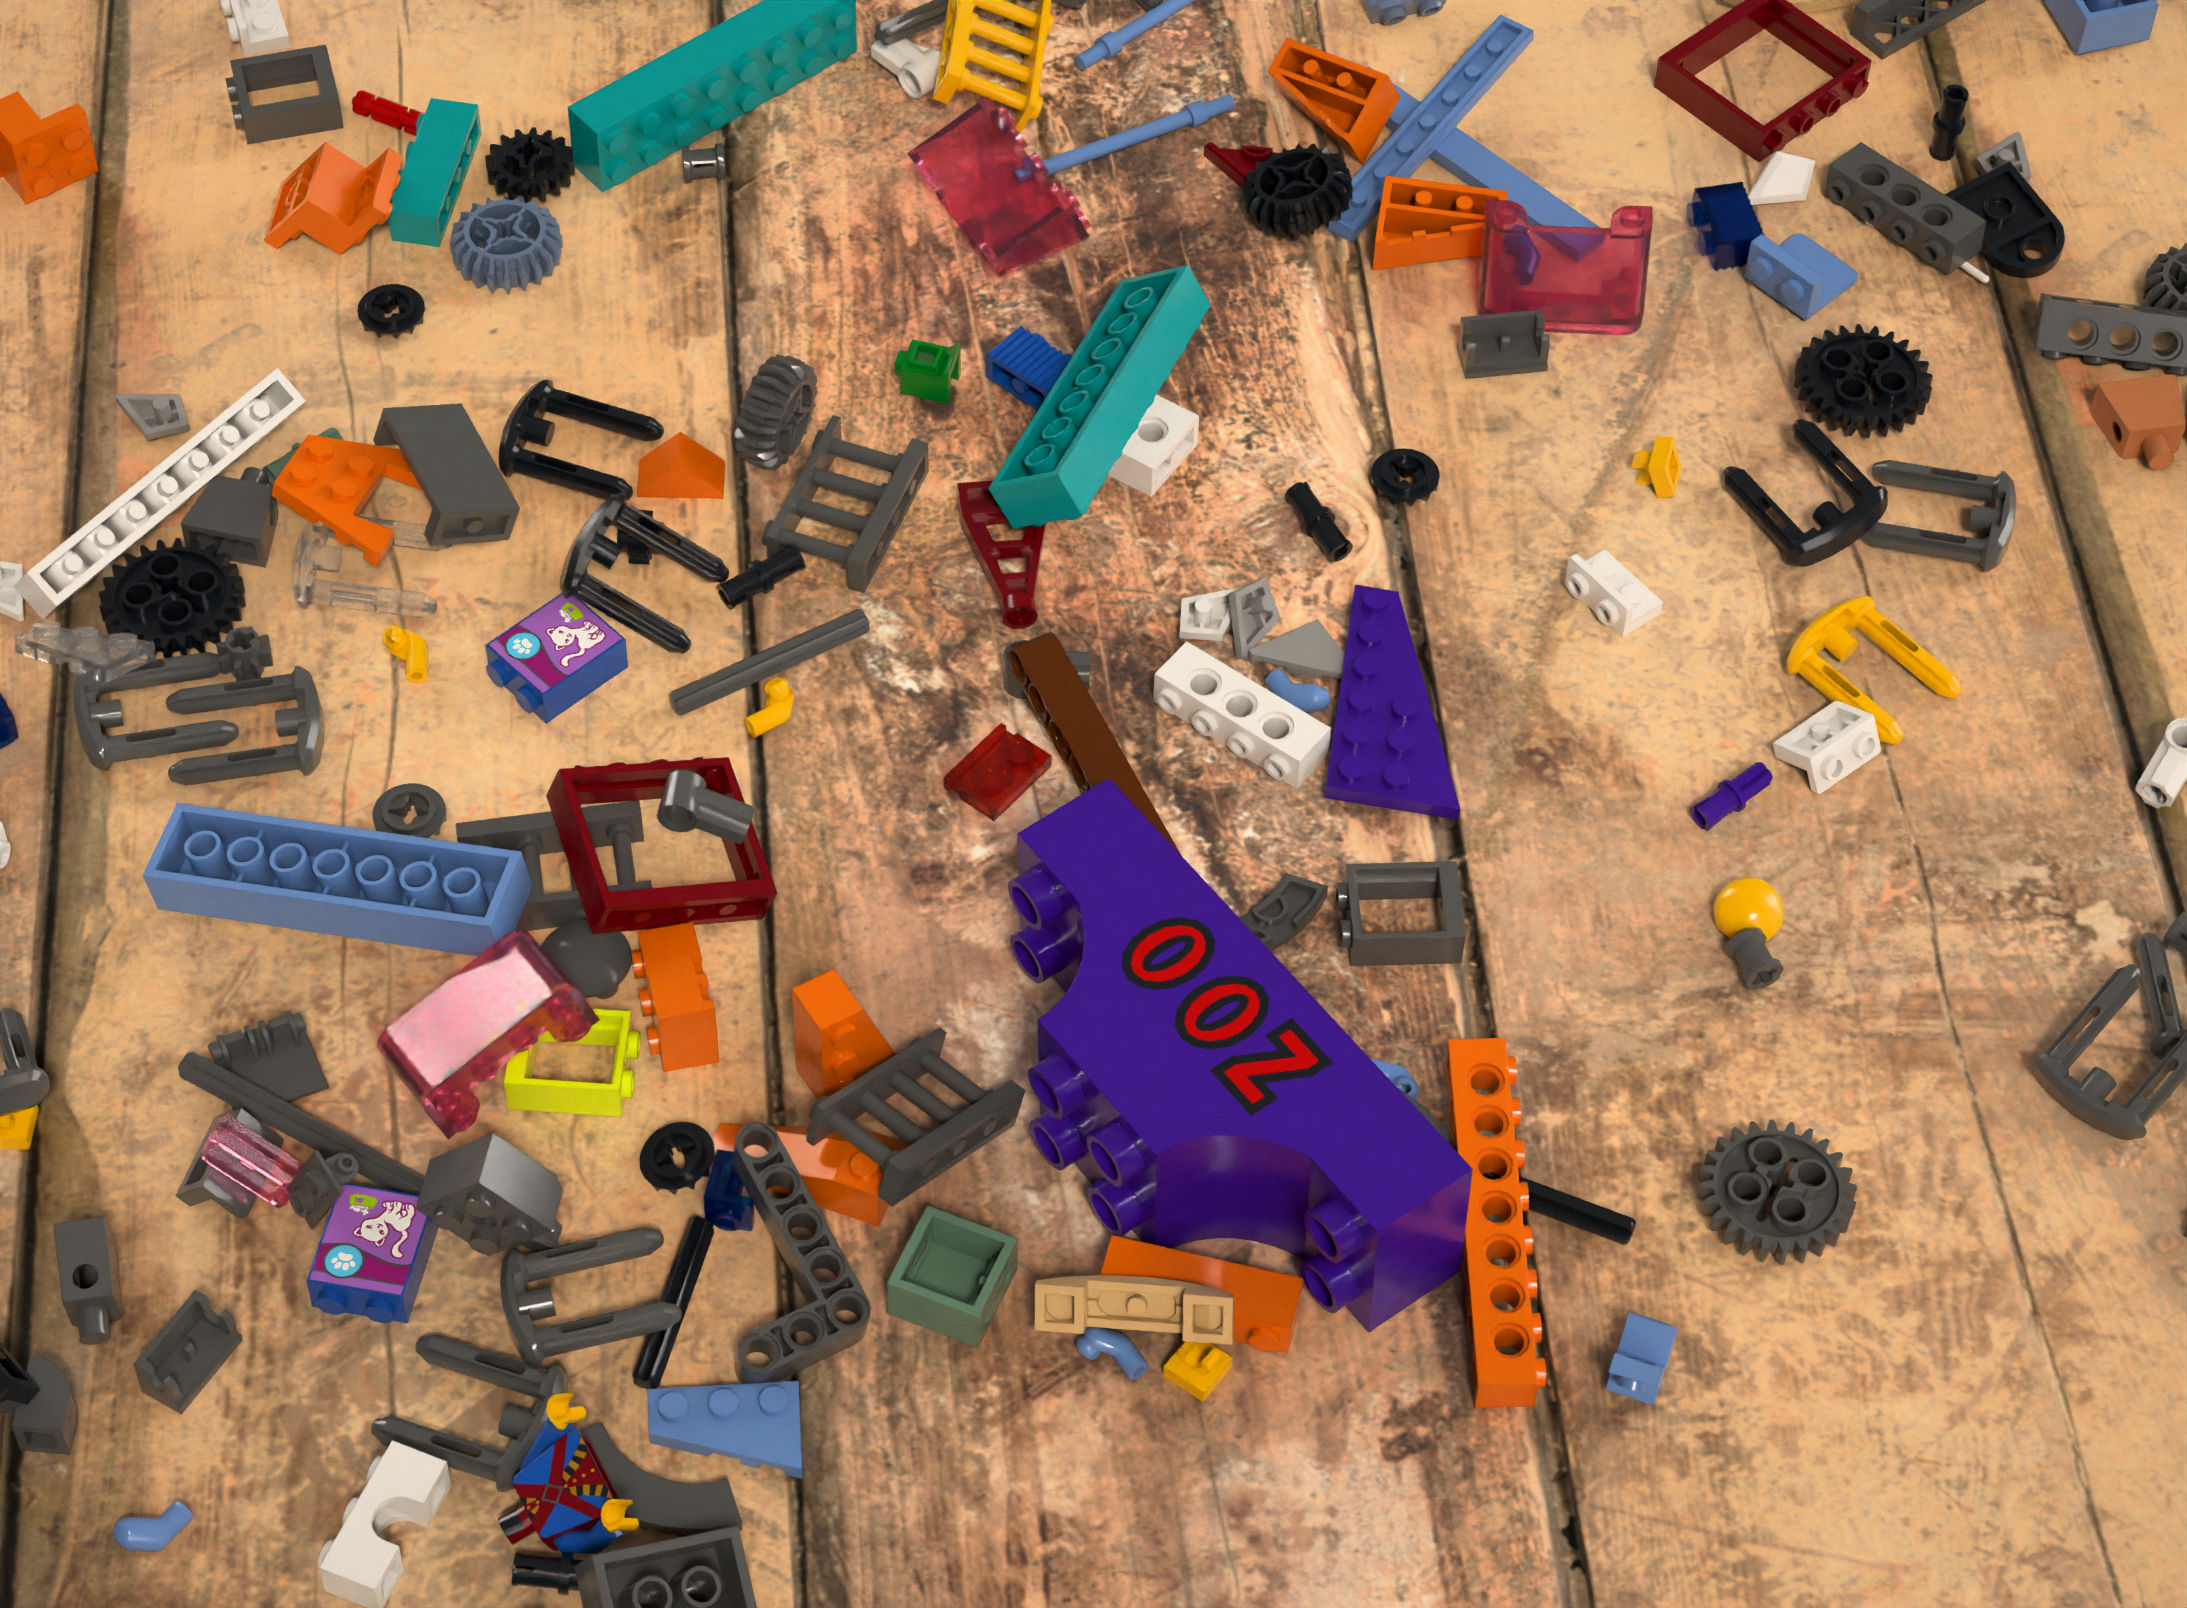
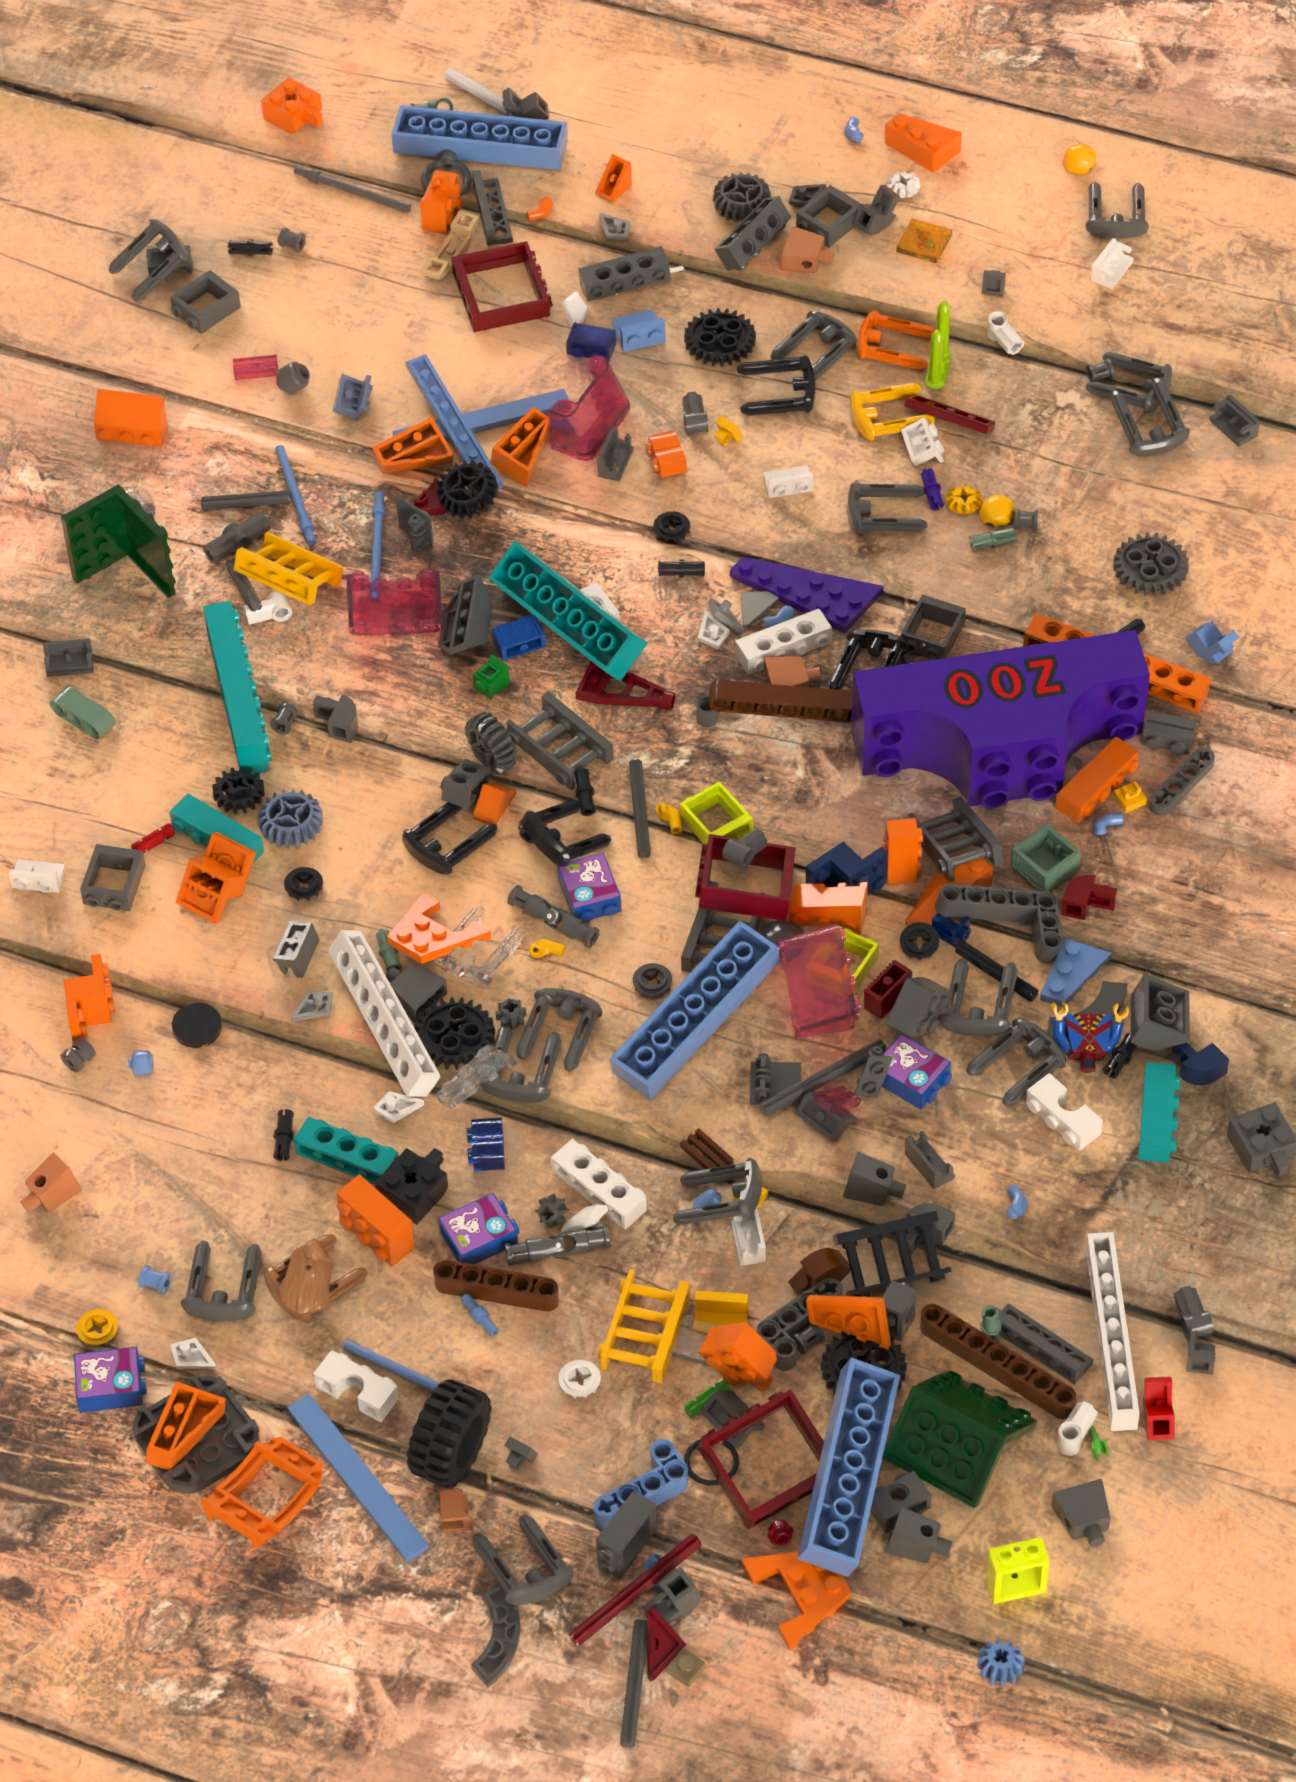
camera: 60 degrees left, 0 degrees up
(56, 296) = (196, 1025): none -> black tile
(91, 996) = (707, 1141): none -> reddish brown tile
(250, 347) = (296, 947): none -> dark grey hinge
(454, 472) = (444, 884): dark grey panel -> none
(474, 630) = (540, 909): none -> dark grey piece
(546, 1138) = (885, 989): none -> dark red brick
(672, 407) = (464, 783): none -> dark grey brick
(742, 228) = (340, 716): none -> dark grey brick
(749, 983) = (845, 866): none -> dark blue bracket
(780, 800) = (710, 796): none -> neon yellow window
(909, 1367) = (1084, 893): none -> dark red brick
(997, 772) = (759, 746): clear red plate -> none
(1026, 295) = (466, 617): none -> dark grey wedge
(1134, 1304) = (1101, 793): tan slope -> none
(1165, 750) = (789, 671): none -> nougat torso
(1170, 154) = (416, 523): none -> dark grey hinge
(1285, 1430) = (1185, 783): none -> dark grey beam
(1316, 844) = (874, 642): none -> black piece
(1380, 1370) = (1169, 732): none -> dark grey brick
(1553, 409) = (666, 454): none -> orange brick
(1617, 703) = (857, 507): none -> dark grey piece
(1667, 412) = (694, 418): none -> dark grey piece
(1676, 926) = (992, 539): none -> sand green axle
(1732, 865) = (956, 503): none -> yellow gear
(1924, 758) = (950, 414): none -> dark red tile
(1948, 122) = (586, 232): black pin -> none
(1970, 65) = (542, 211): none -> orange arm
(2014, 222) = (647, 236): black tile -> none
(2023, 573) = (868, 334): none -> orange piece
(2030, 697) = (939, 352): none -> lime piece
(2103, 122) = (615, 179): none -> orange slope

